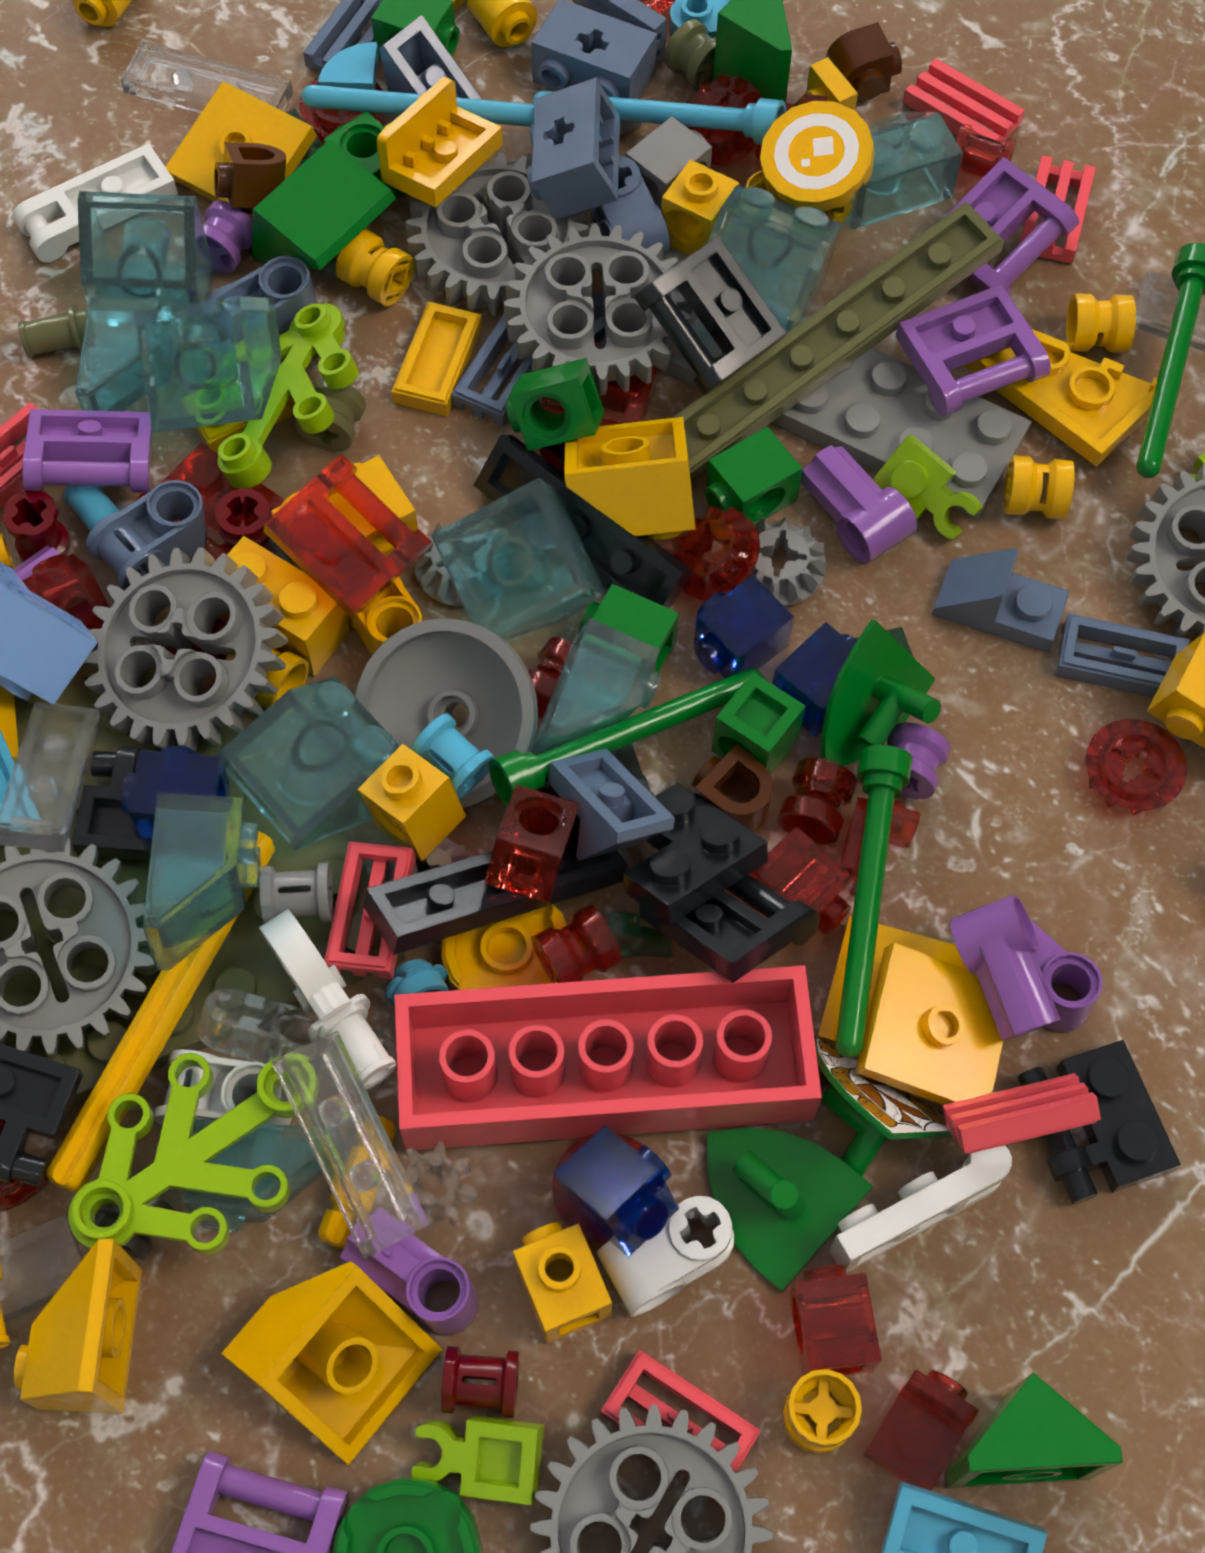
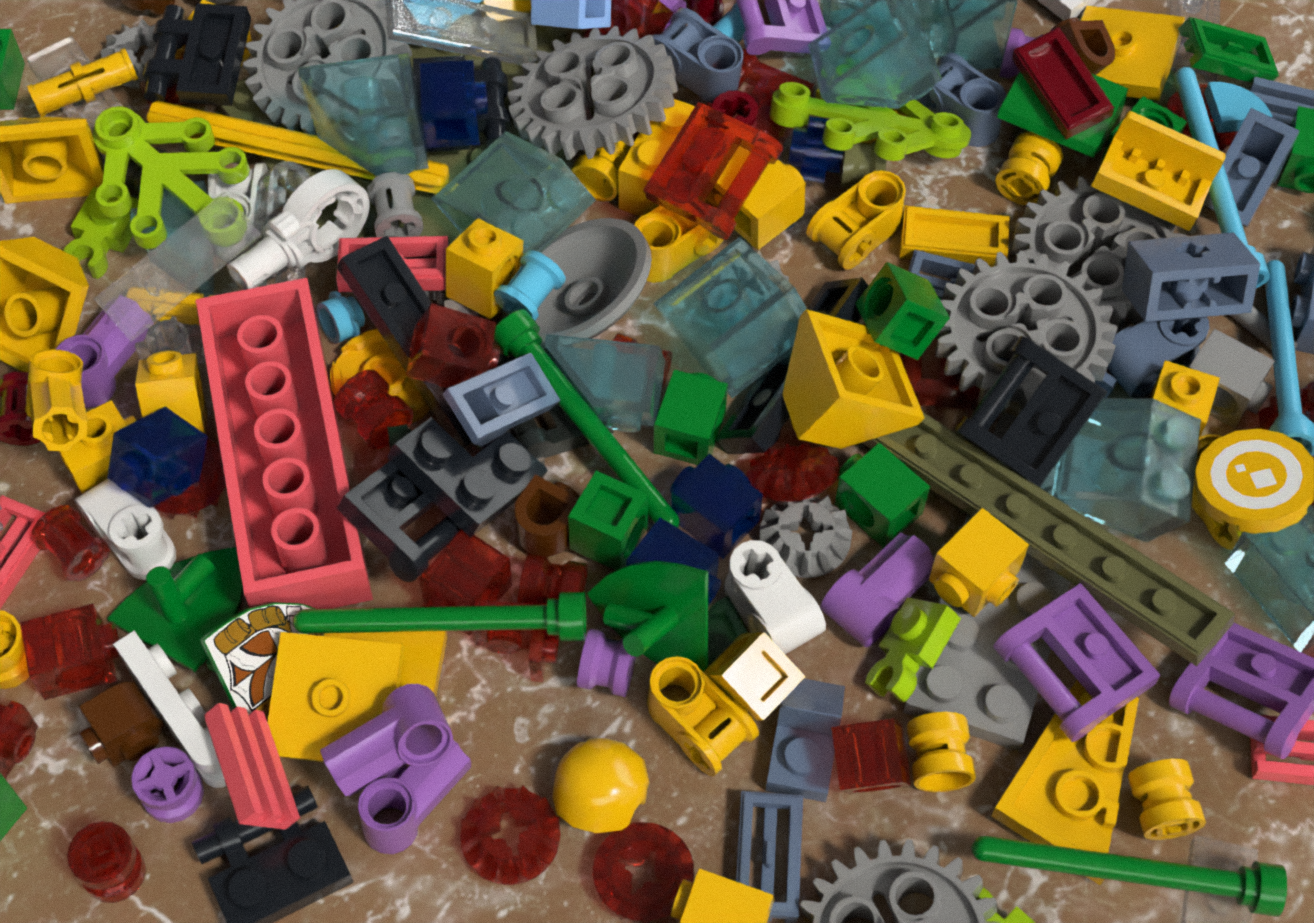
camera: 80 degrees right, 5 degrees down
(202, 1280) = (98, 233): none -> lime plate
(272, 71) = (1228, 51): none -> green tile
(299, 455) = (811, 153): none -> clear blue gear
(309, 191) = (1062, 83): none -> dark red tile
(407, 439) = (855, 222): none -> yellow piece
(513, 1182) = (173, 383): none -> yellow brick
(513, 1309) = (56, 399): none -> yellow piece
(686, 1323) = (70, 543): none -> clear red bush
(861, 592) = (774, 603): none -> white piece
(864, 401) = (978, 564): none -> yellow brick
(933, 1271) = (120, 724): none -> reddish brown plate
(954, 623) = (755, 674): none -> brick
(987, 685) = (705, 723): none -> yellow piece
(1019, 1214) = (160, 772): none -> medium lavender wheel
(1046, 788) = (600, 785): none -> yellow hair
(1052, 536) = (871, 756): none -> clear red brick
(1068, 904) = (491, 856): none -> clear red gear
(1088, 1303) = (113, 874): none -> clear red wheel

